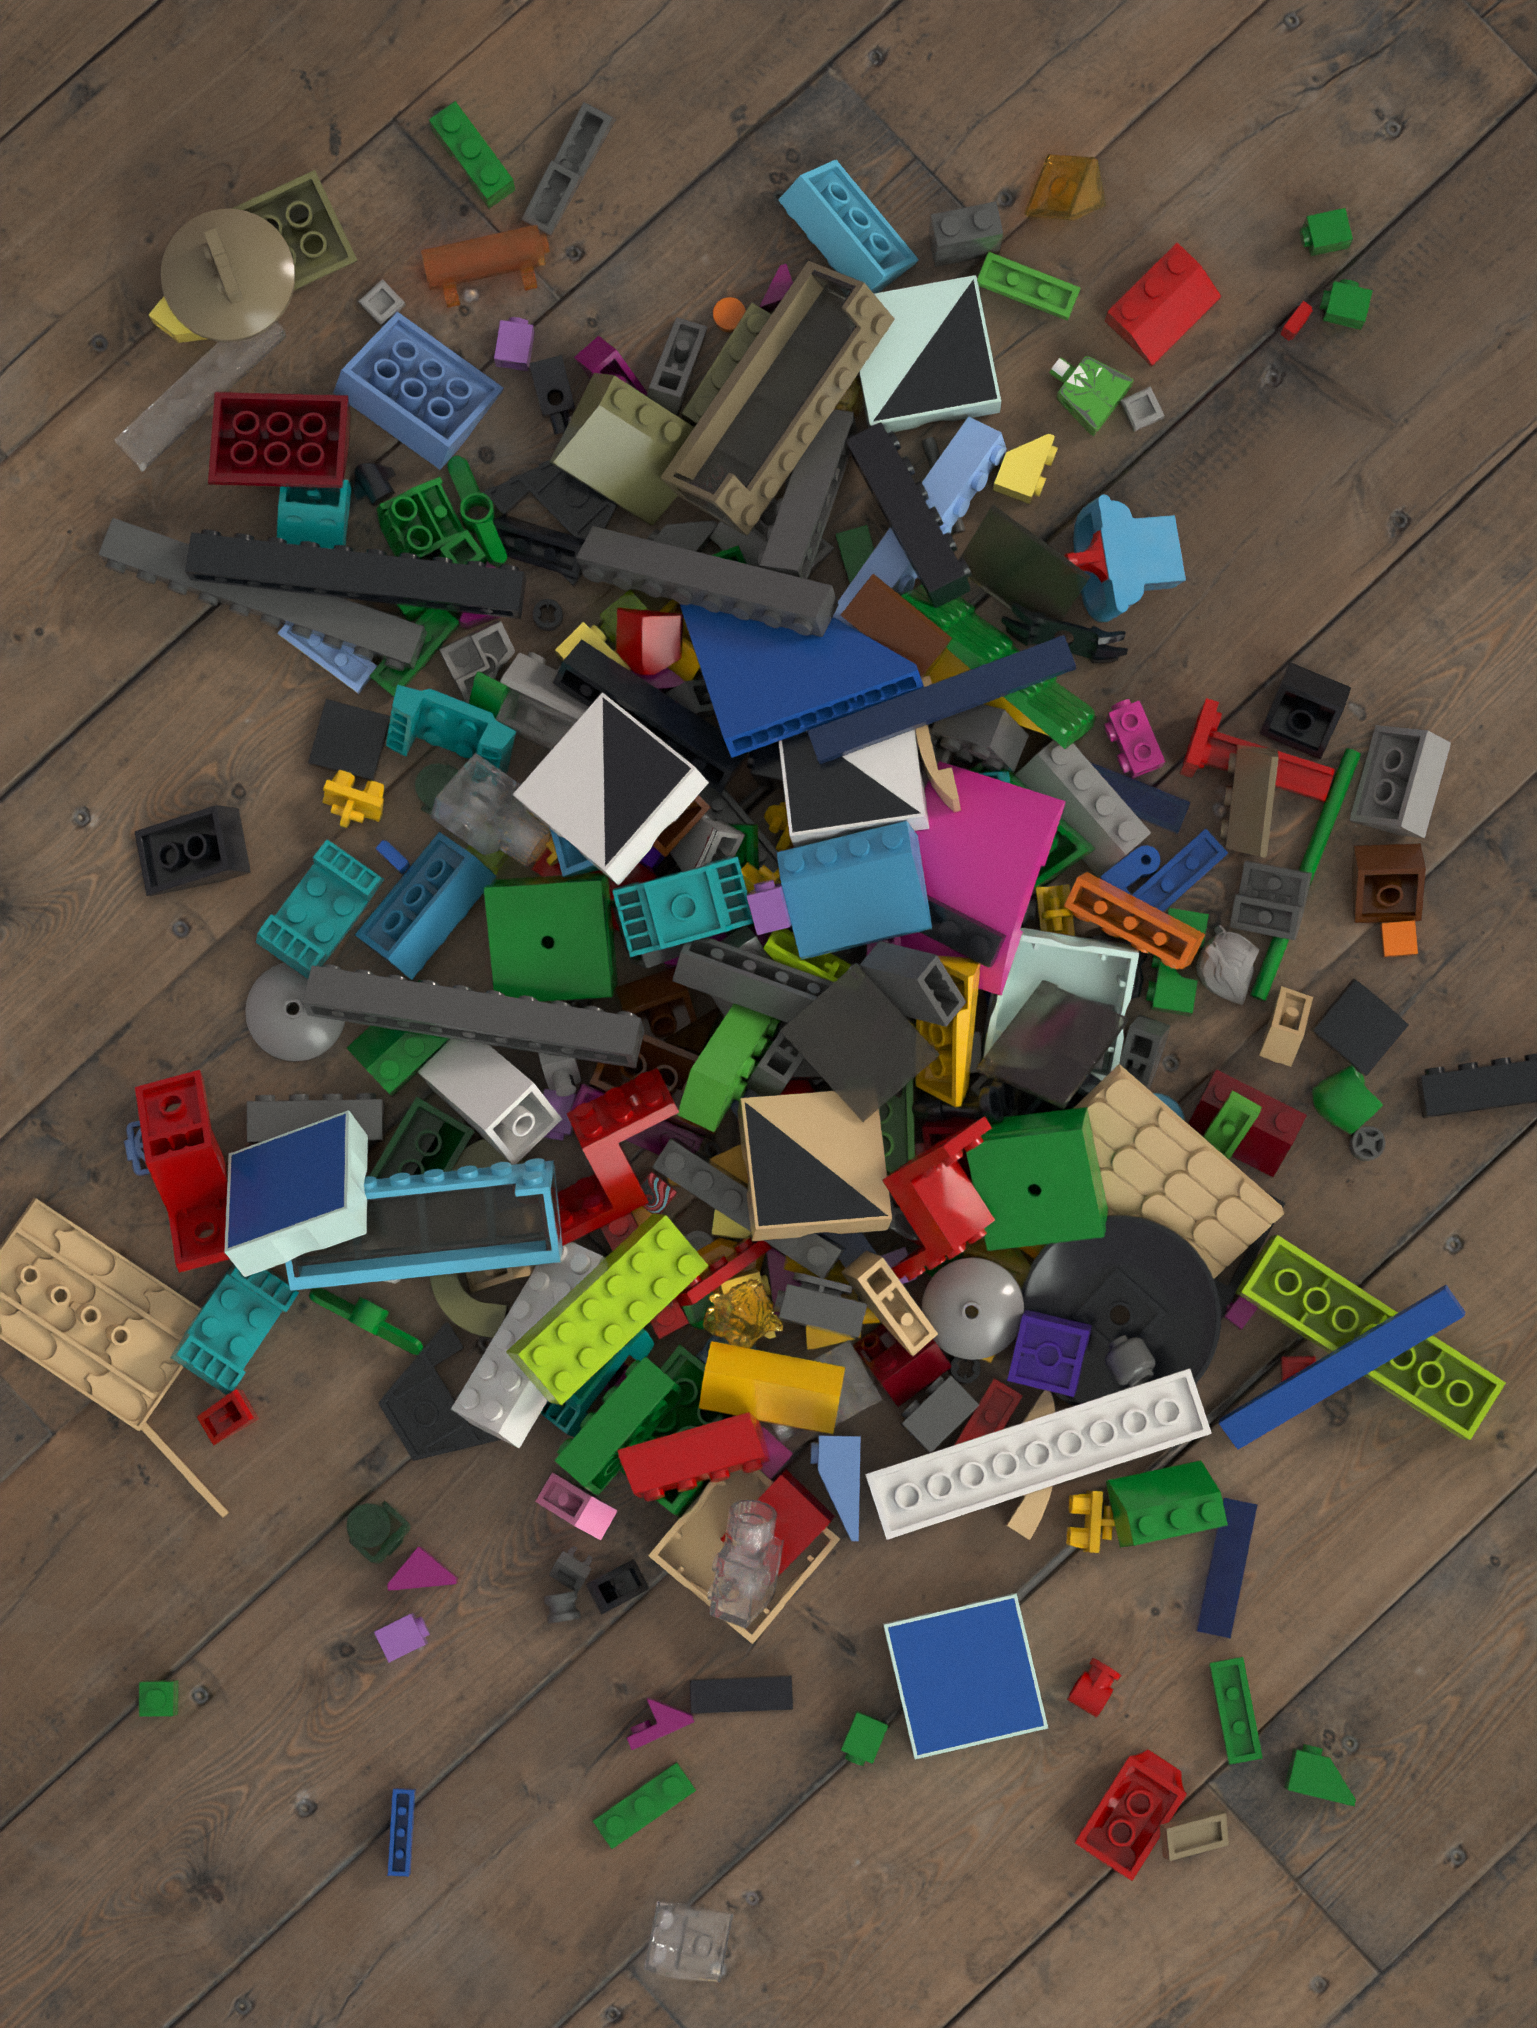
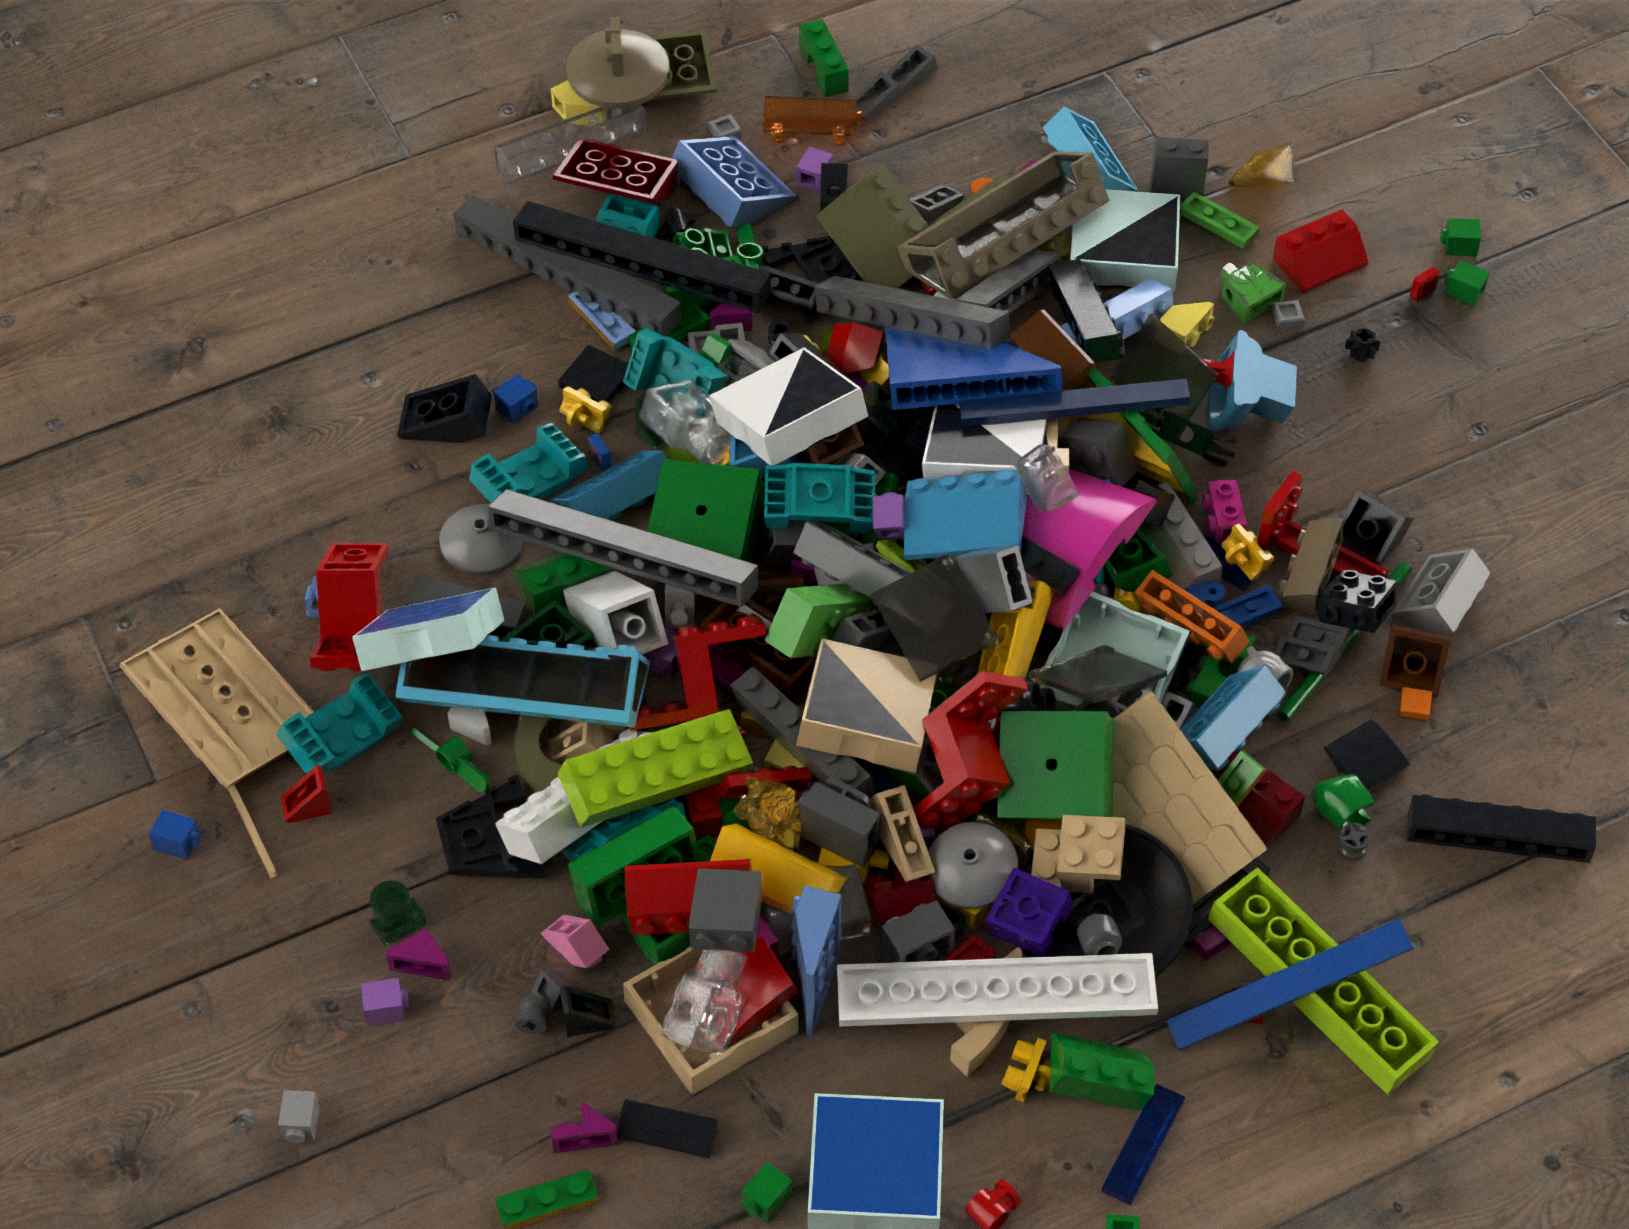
camera: 15 degrees right, 30 degrees down
(105, 1503) = (175, 834): none -> blue brick
(158, 1698) = (153, 992): green brick -> none
(269, 805) = (516, 398): none -> blue brick
(362, 1793) = (298, 1116): none -> light grey brick
(401, 1832) = (319, 1159): blue piece -> none
(744, 1486) = (725, 910): none -> dark grey brick
(938, 828) = (1046, 478): none -> clear brick
(1053, 774) = (1161, 508): none -> black brick
(1085, 1275) = (1080, 852): none -> tan bracket
(1170, 795) = (1245, 552): none -> yellow hips
(1202, 1048) = (1232, 715): none -> dark azure slope
(1247, 432) = (1362, 344): none -> black gear
(1286, 1026) = (1301, 739): tan slope -> none
(1311, 835) = (1357, 601): none -> black brick

